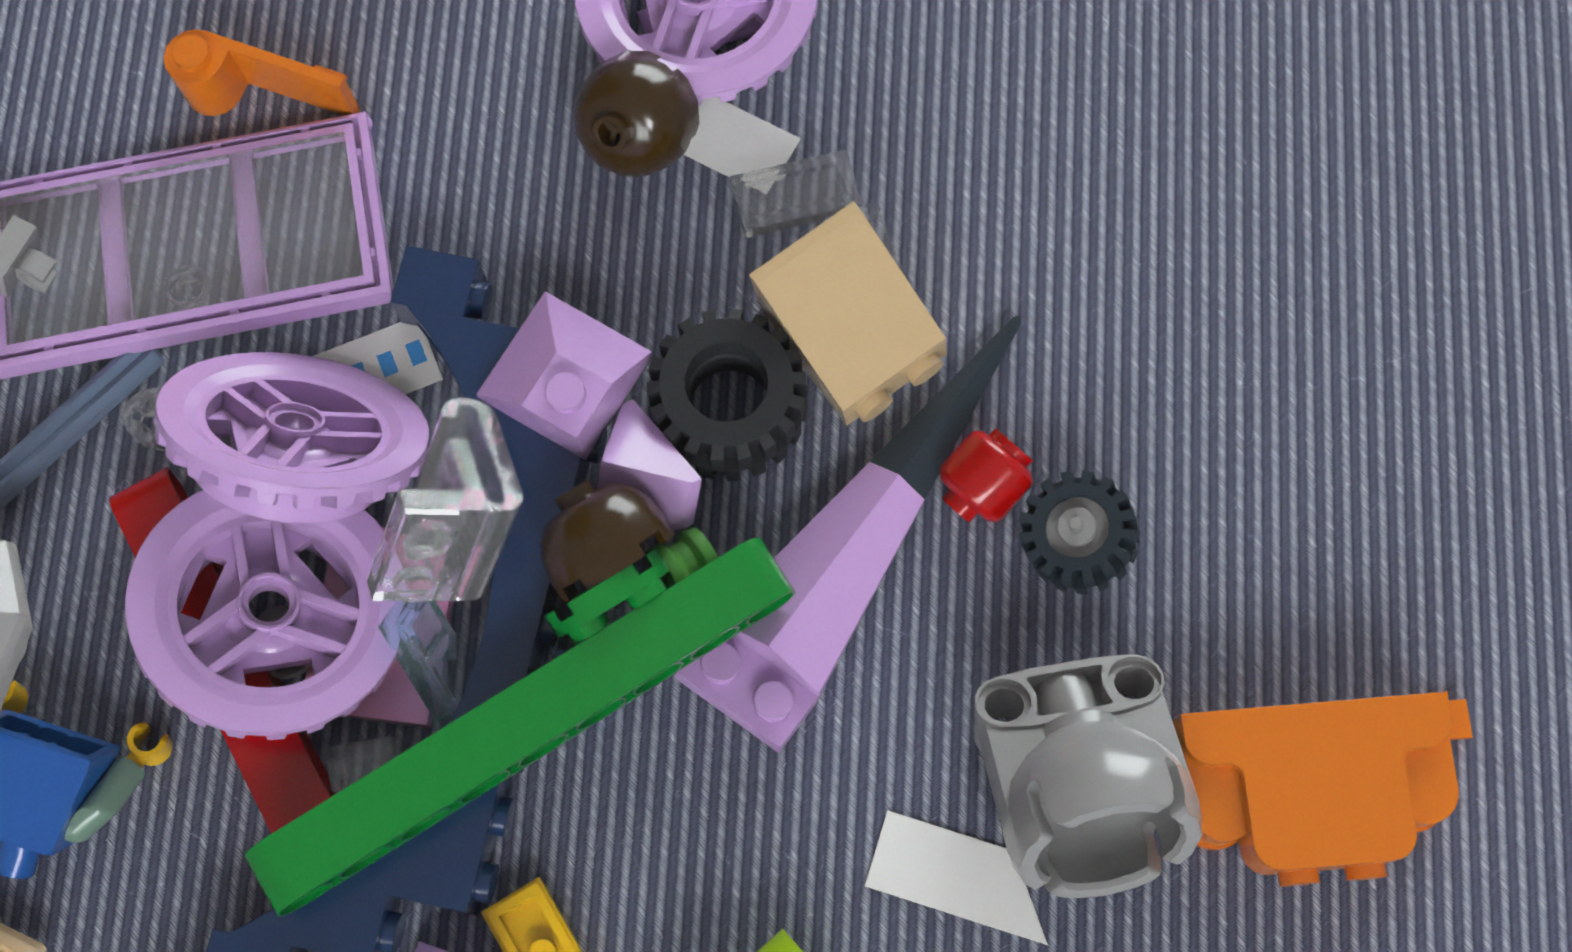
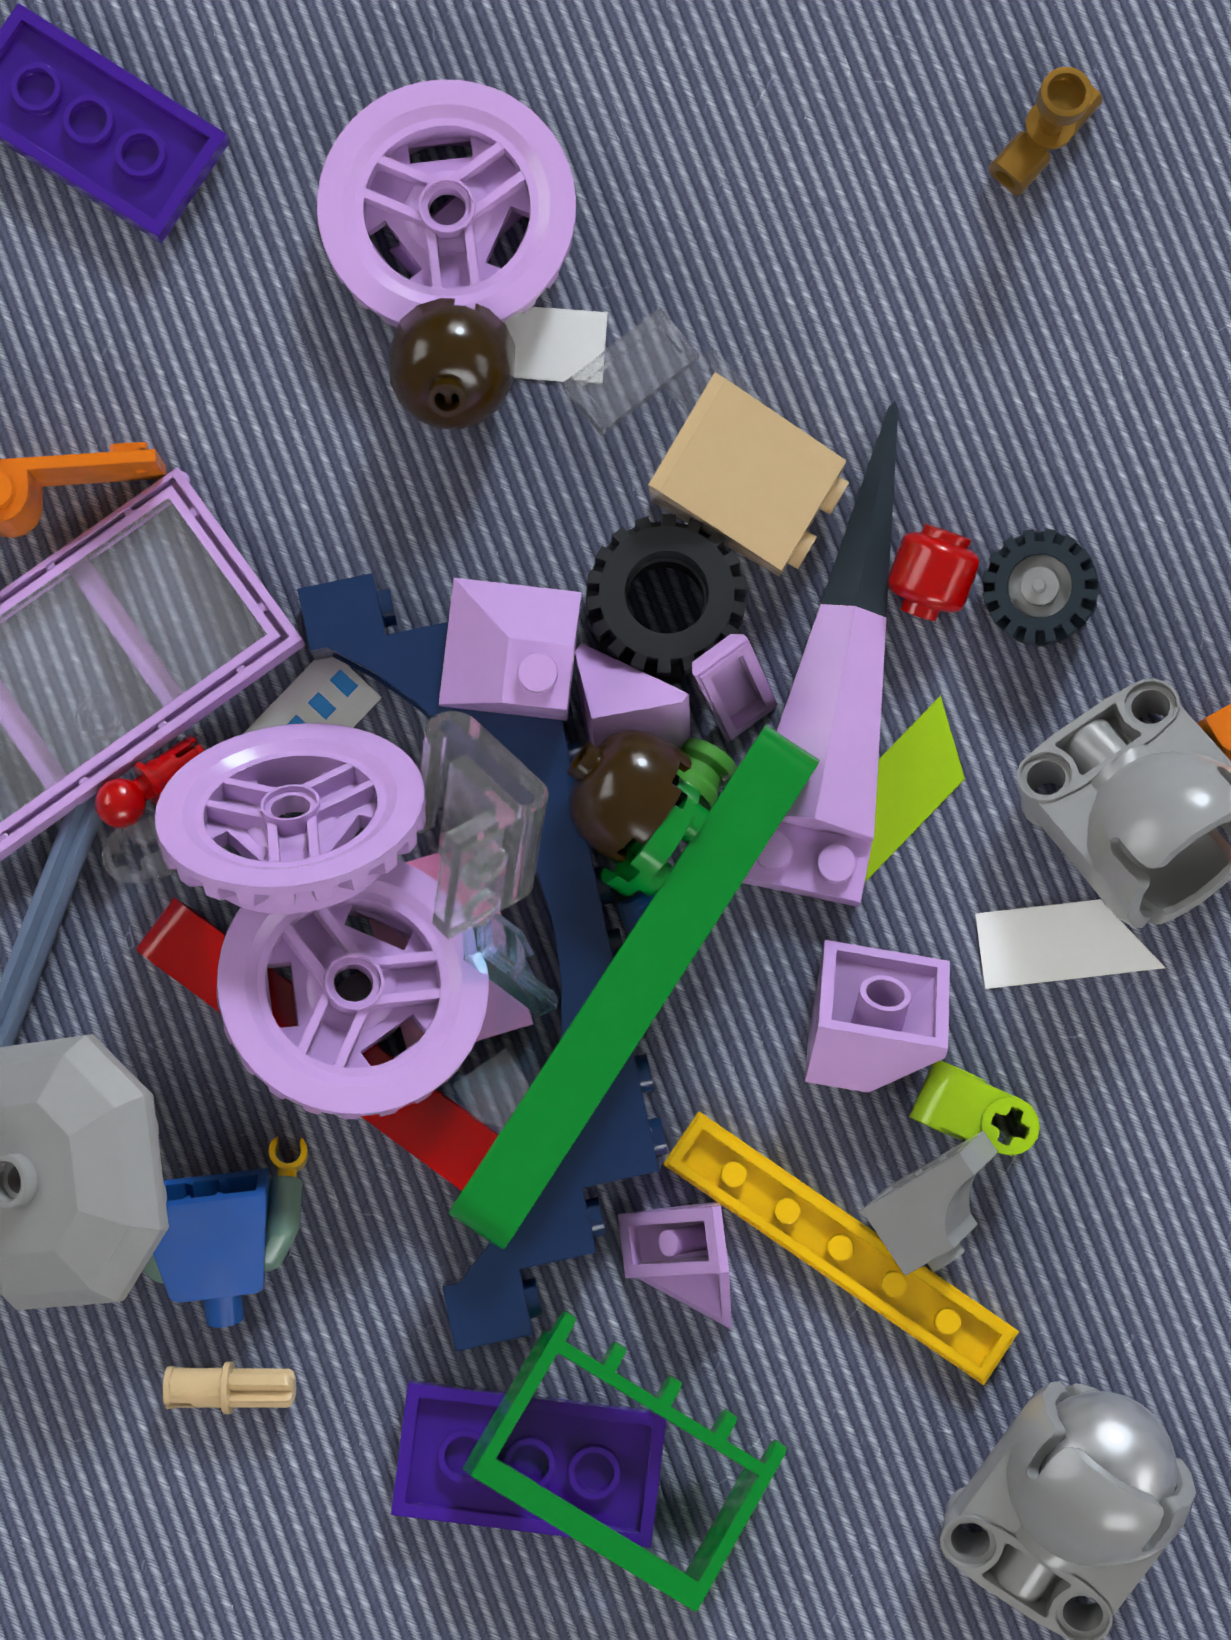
camera: 35 degrees left, 10 degrees up
(164, 358) = (123, 801): none -> red pin
(742, 861) = (876, 1016): none -> lavender slope
(751, 494) = (733, 685): none -> lavender tile
(882, 663) = (913, 782): none -> lime sticker
(1278, 126) = (1061, 109): none -> pearl gold bar

